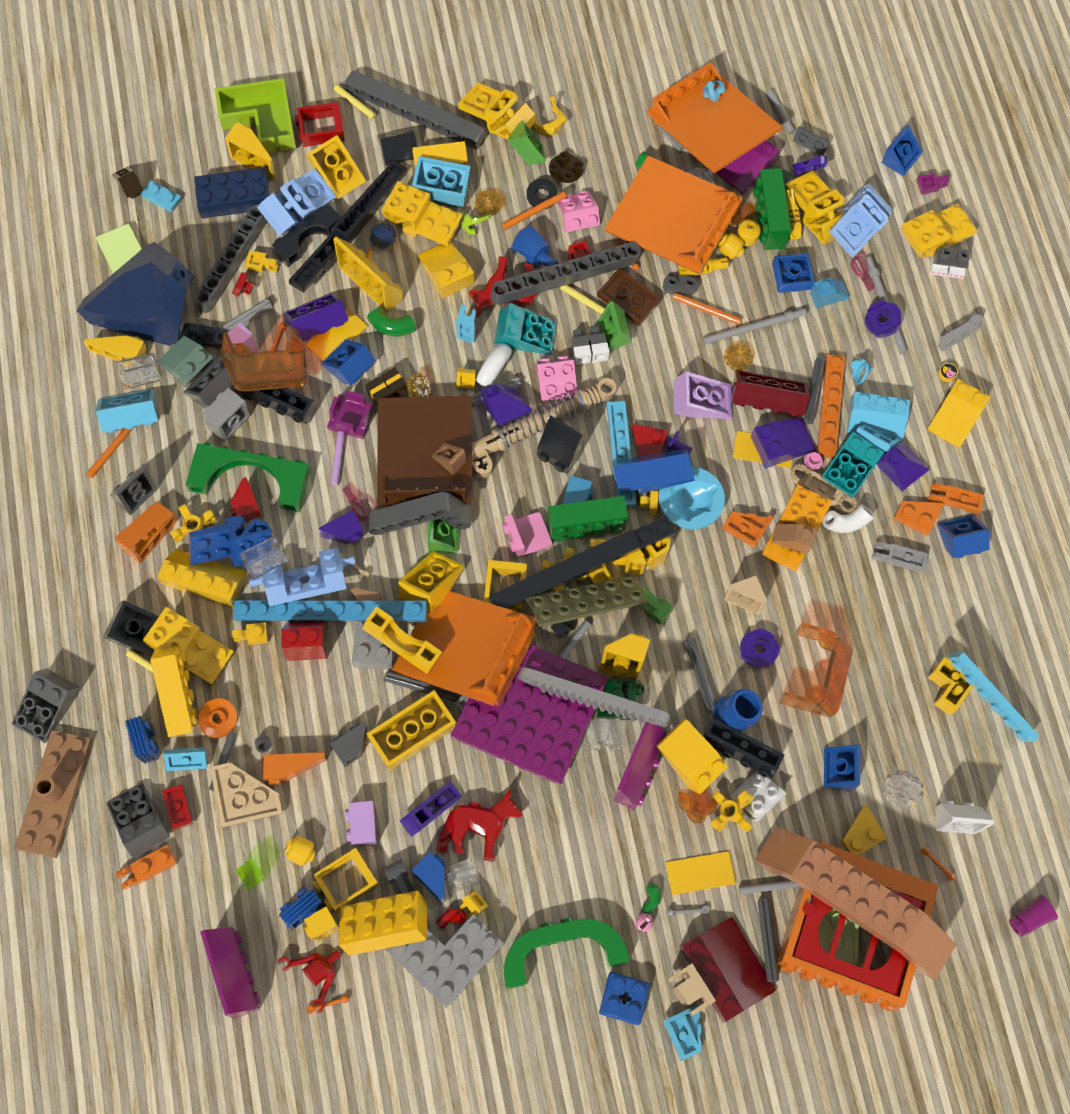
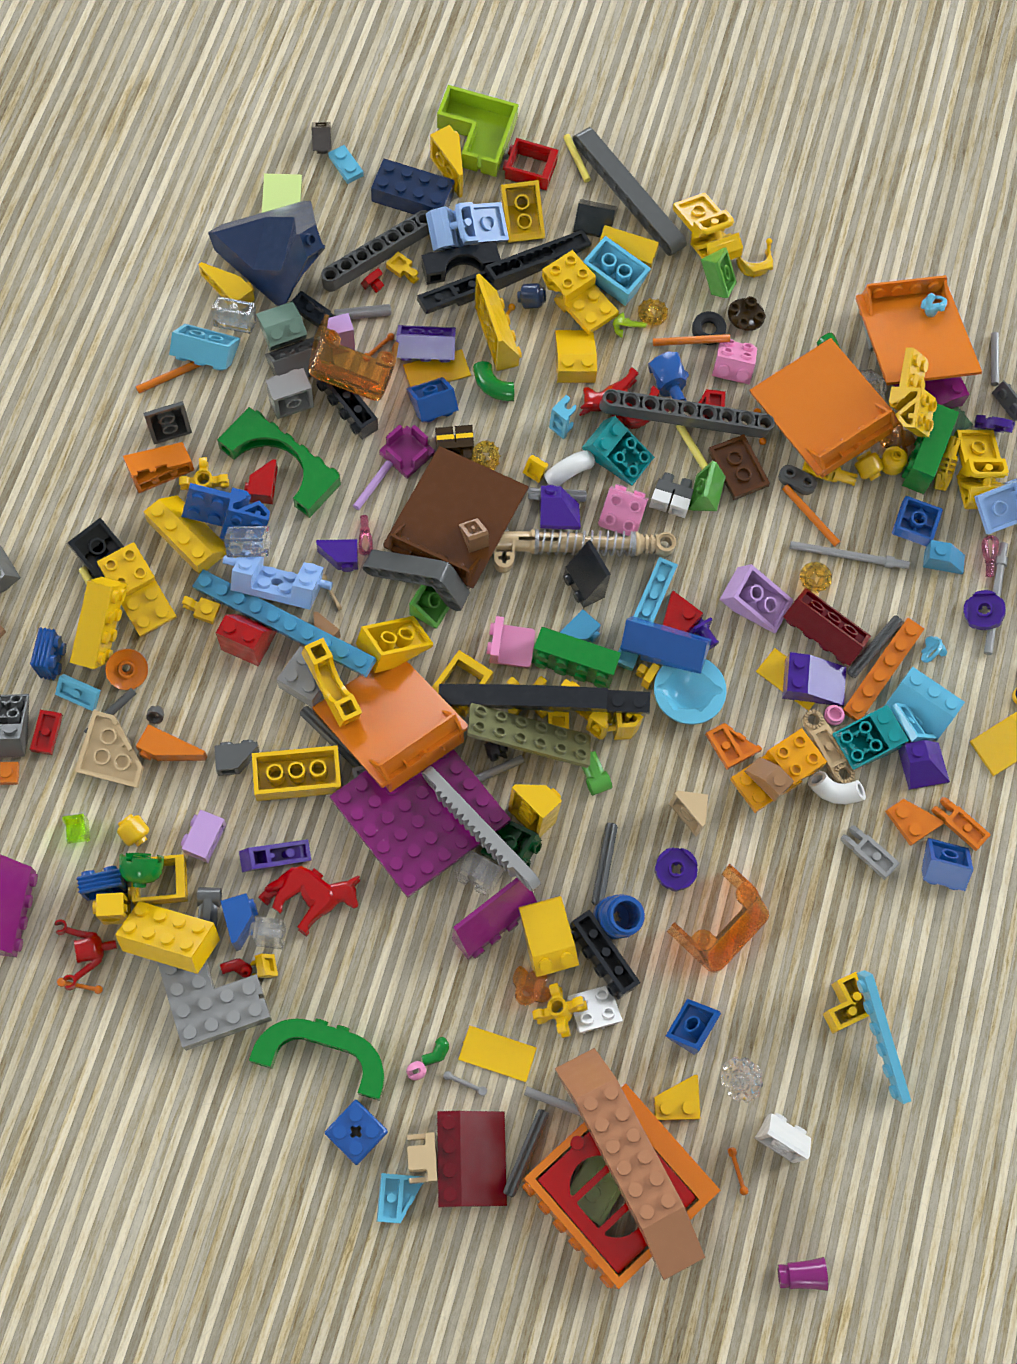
camera: 25 degrees right, 0 degrees up
(328, 878) = (140, 868): none -> green cylinder
(742, 176) = (911, 399): none -> yellow piece

